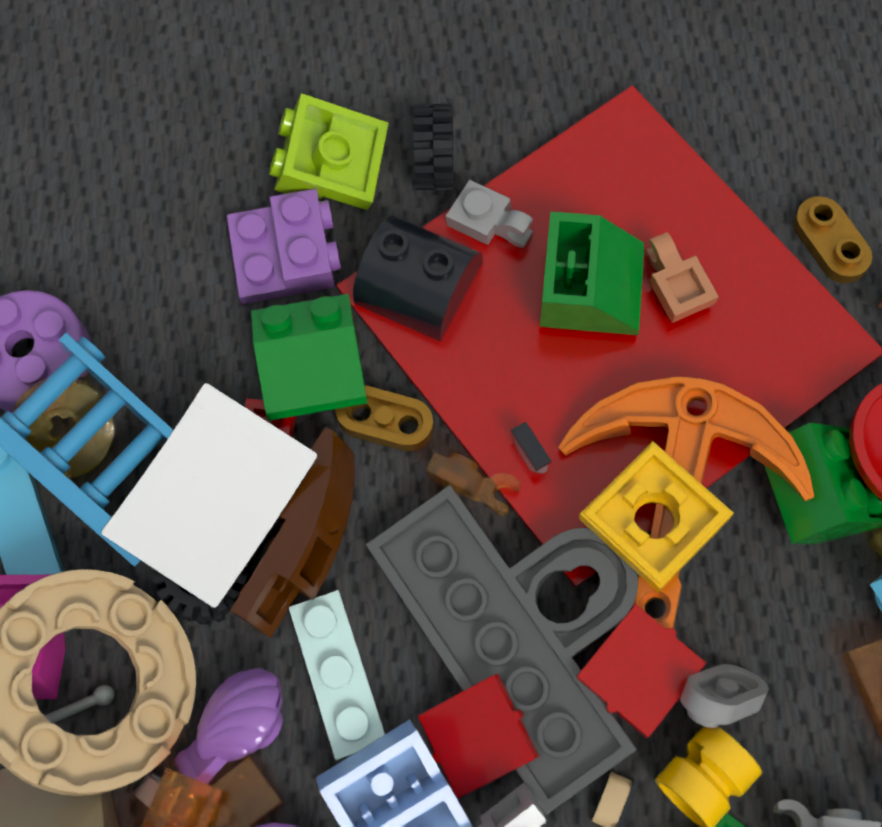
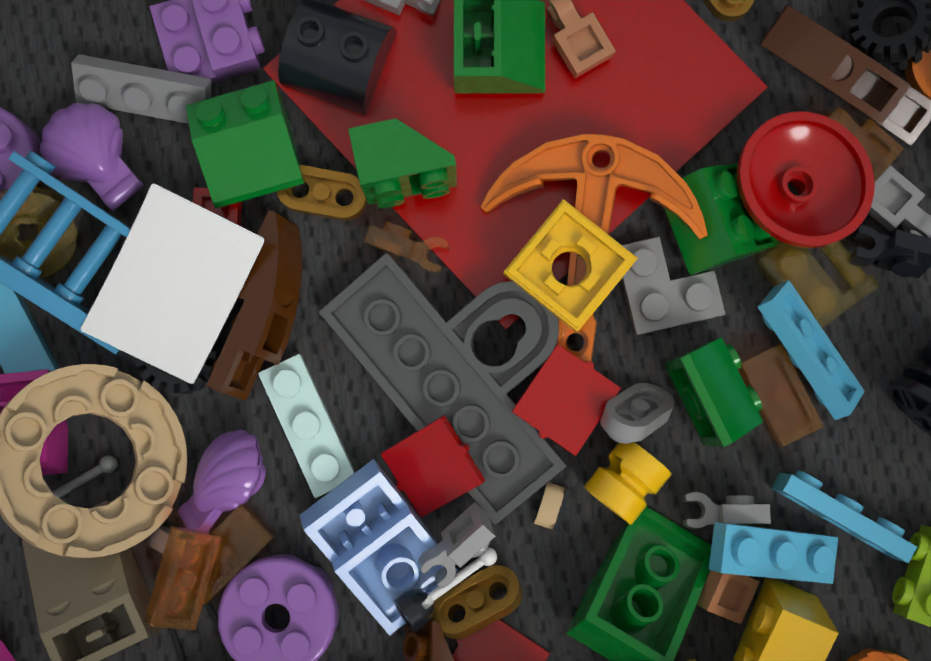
camera: 10 degrees left, 15 degrees up
(141, 349) = (87, 147): none -> medium lavender animal
(201, 293) = (137, 88): none -> light grey plate
(476, 388) = (400, 163): none -> green slope
(530, 448) = (455, 211): black piece -> none
(758, 576) = (661, 303): none -> light grey plate
(815, 680) = (715, 393): none -> green slope

